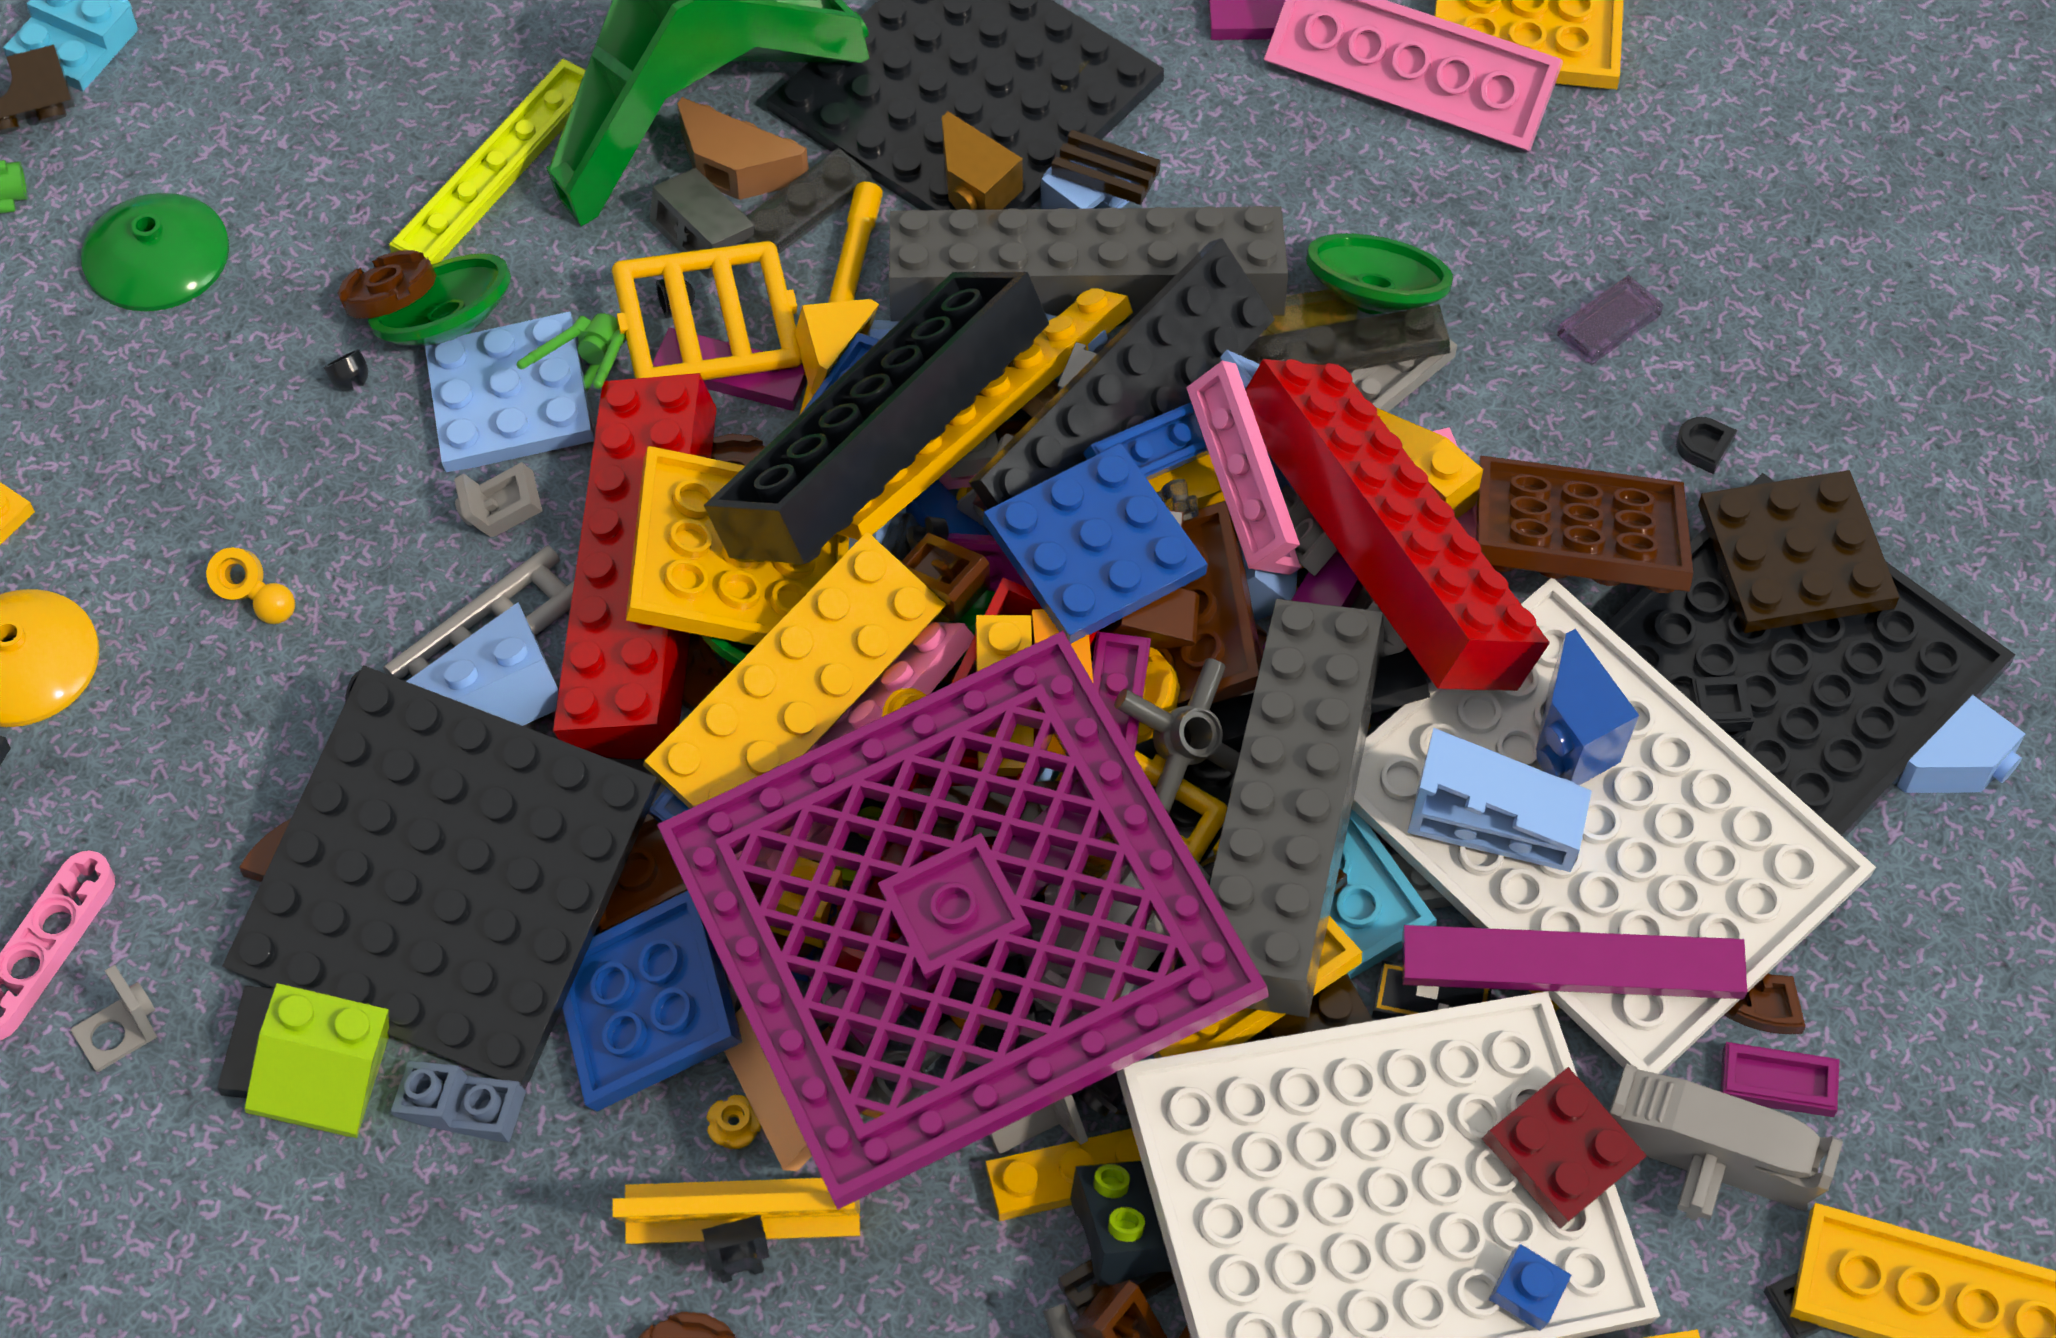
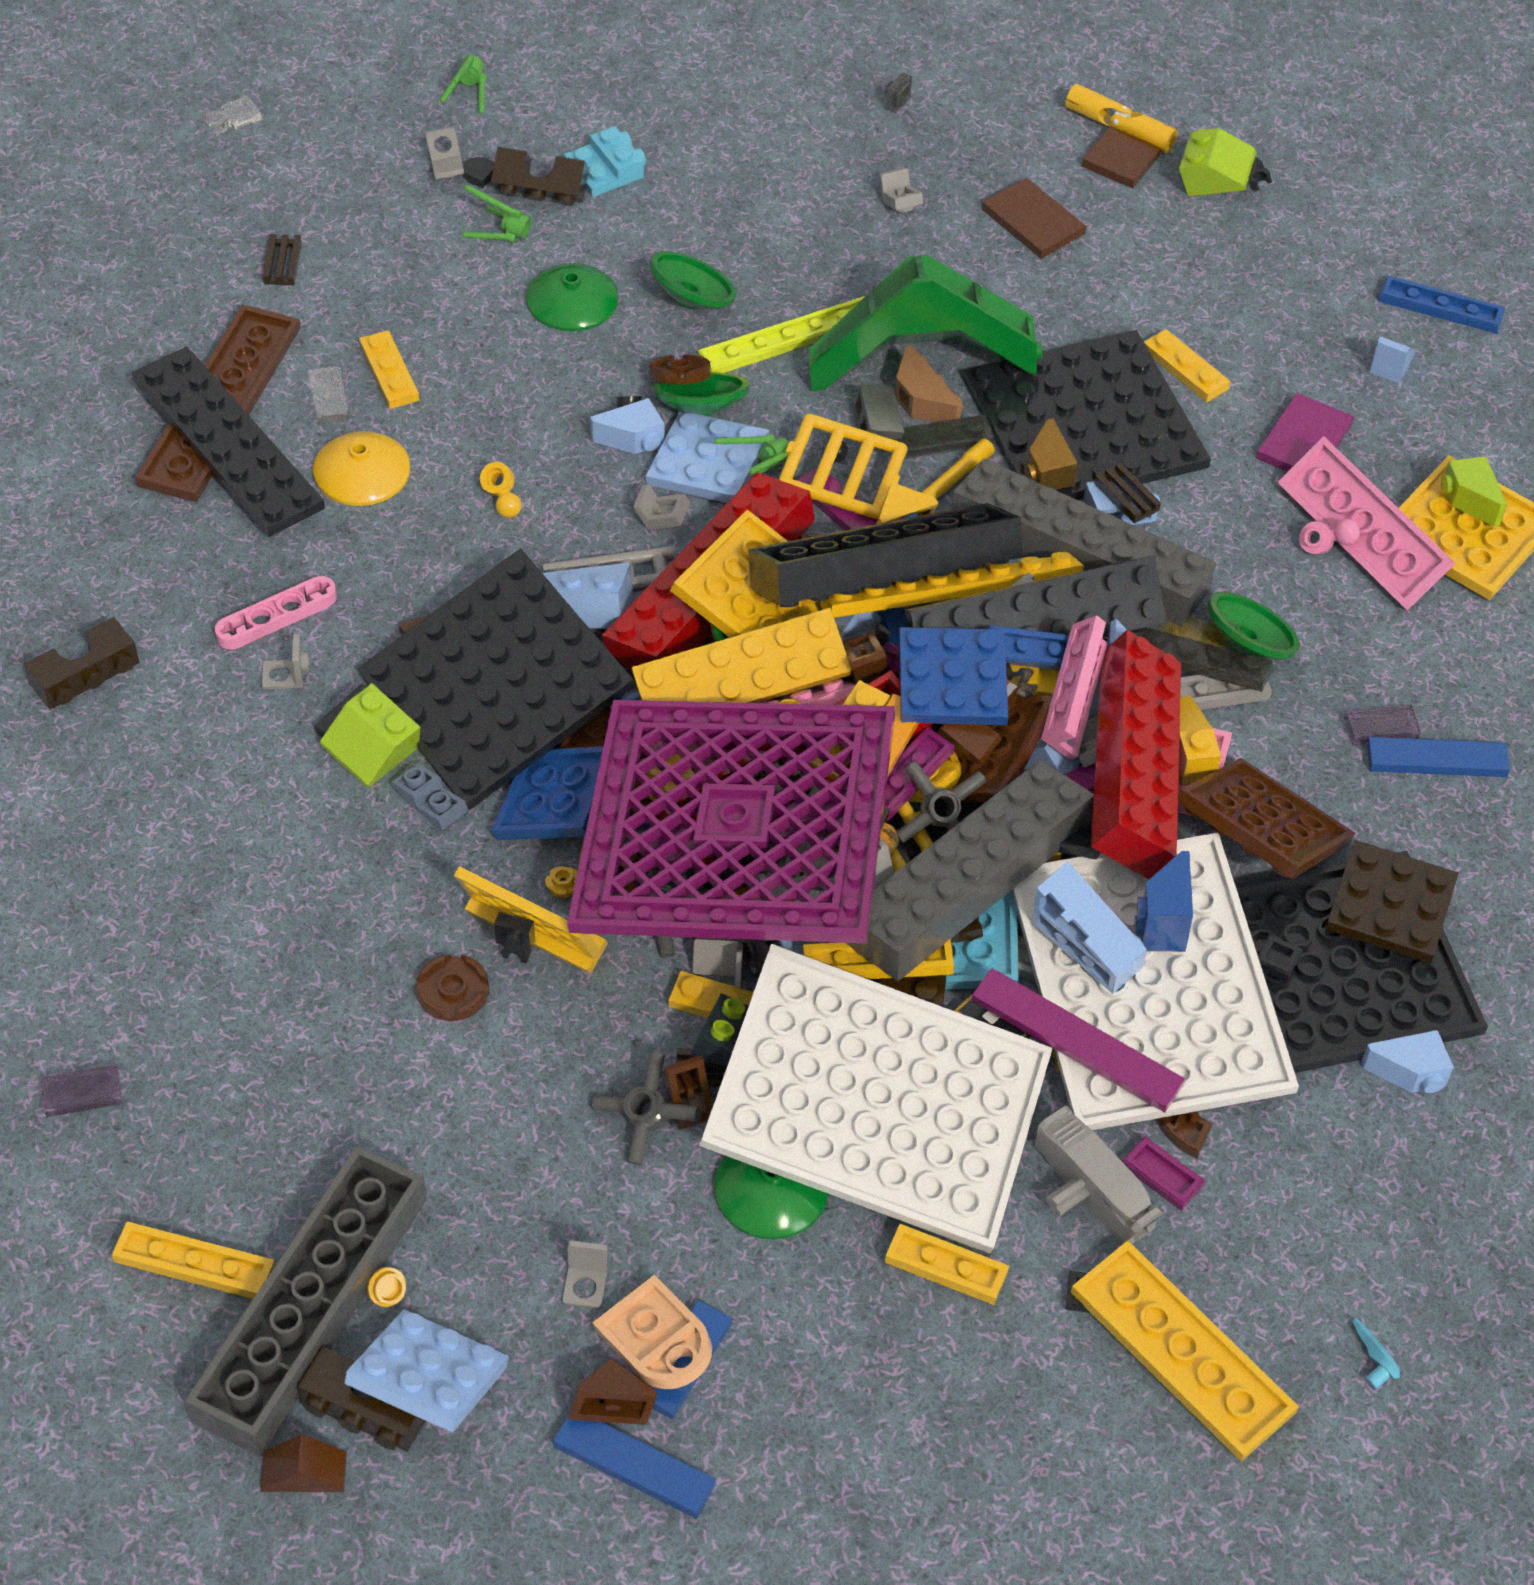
camera: 30 degrees right, 5 degrees down
(318, 149) = (692, 281): none -> green dish
(374, 403) = (629, 427): none -> light blue slope
(1399, 86) = (1345, 532): none -> bright pink plate
(1530, 1287) = (923, 1185): blue plate -> none
(1564, 1147) = (999, 1129): dark red plate -> none
(1702, 327) = (1438, 756): none -> blue tile
(1704, 442) = (1389, 819): black tile -> none

